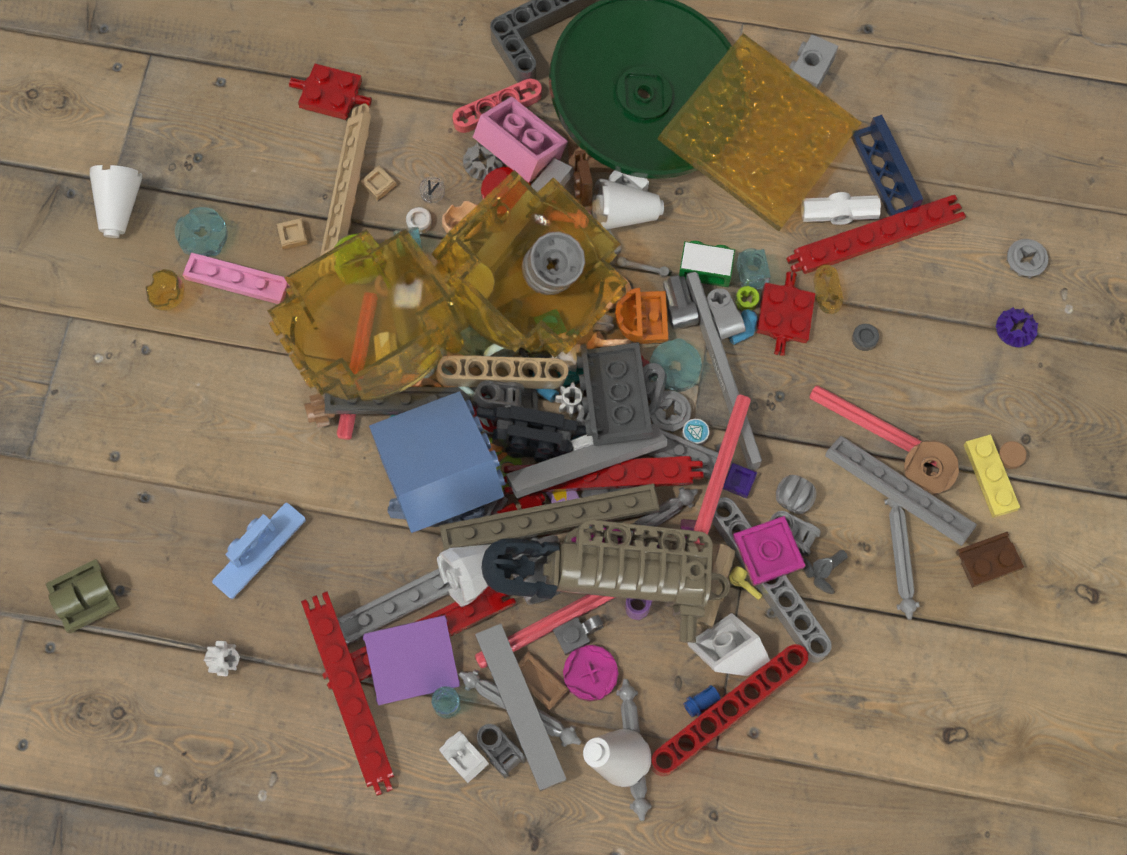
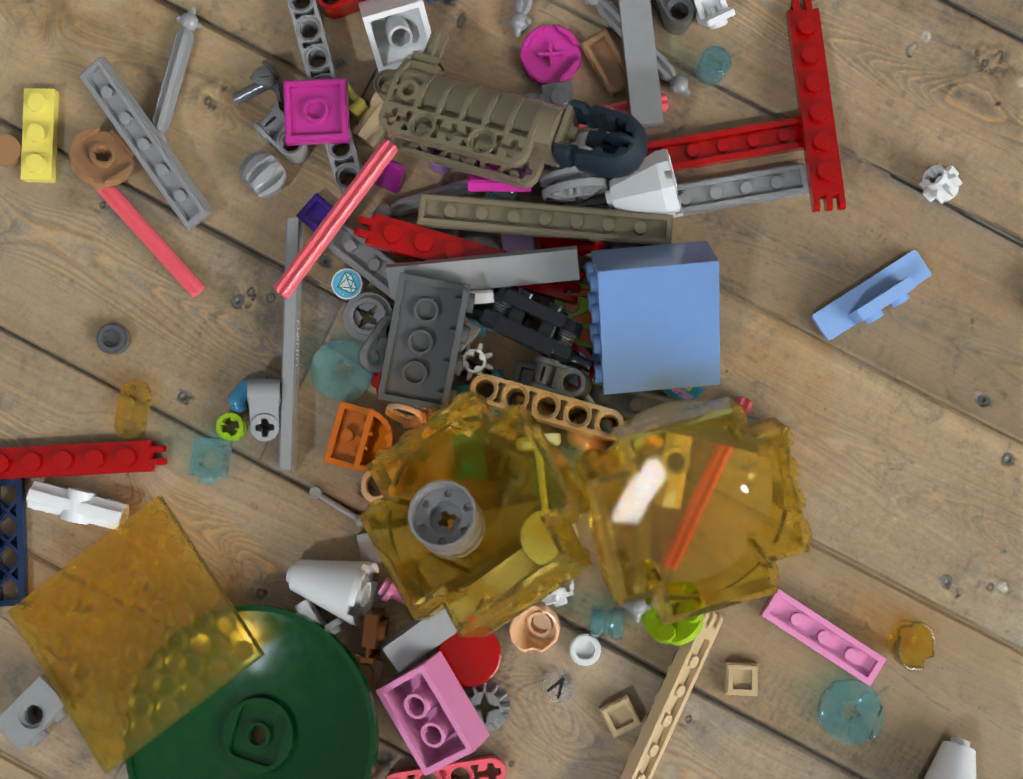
camera: 160 degrees left, 15 degrees up
(411, 659) = (738, 120): medium lavender piece -> none
(681, 309) = (311, 433): flat silver piece -> none
(710, 262) = (262, 483): white brick -> none
(785, 313) = (193, 395): red plate -> none
(989, 559) = (80, 44): reddish brown plate -> none

